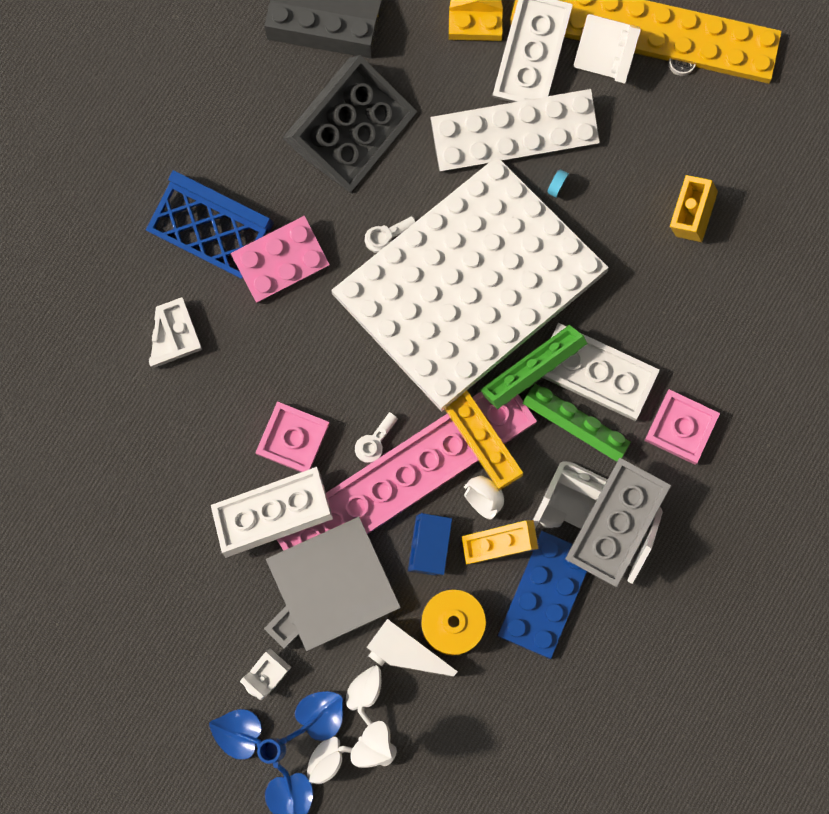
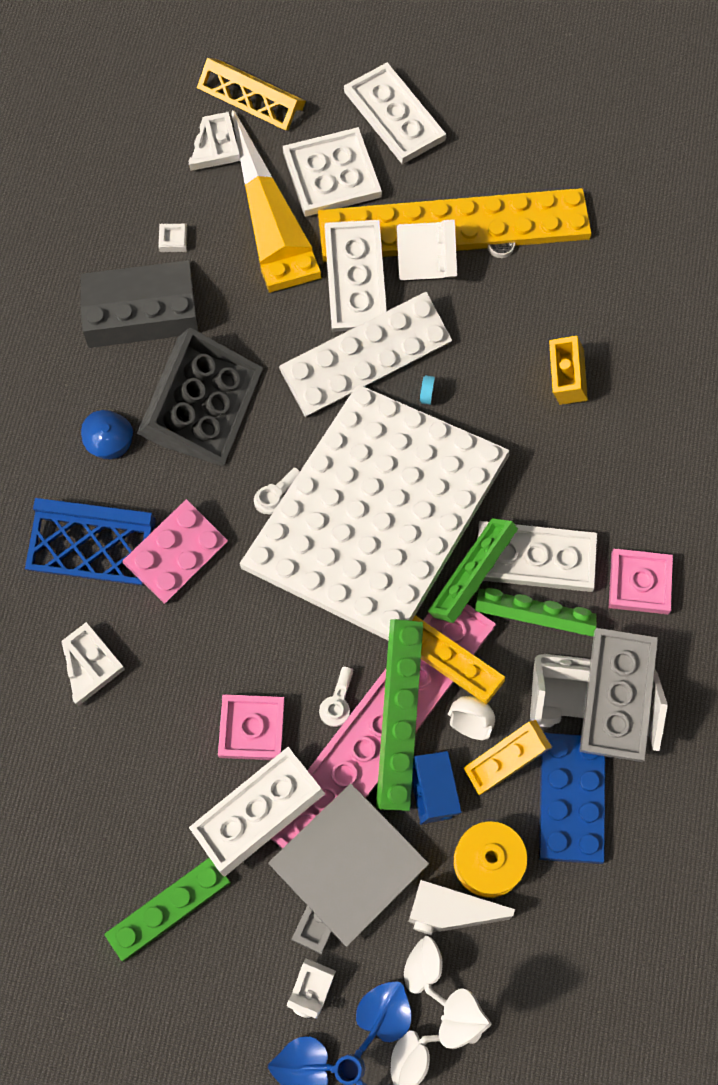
camera: 20 degrees left, 10 degrees down
(169, 567) = (166, 909): none -> bright green plate
(256, 129) = (106, 434): none -> blue hat
(421, 472) = (399, 715): none -> bright green plate

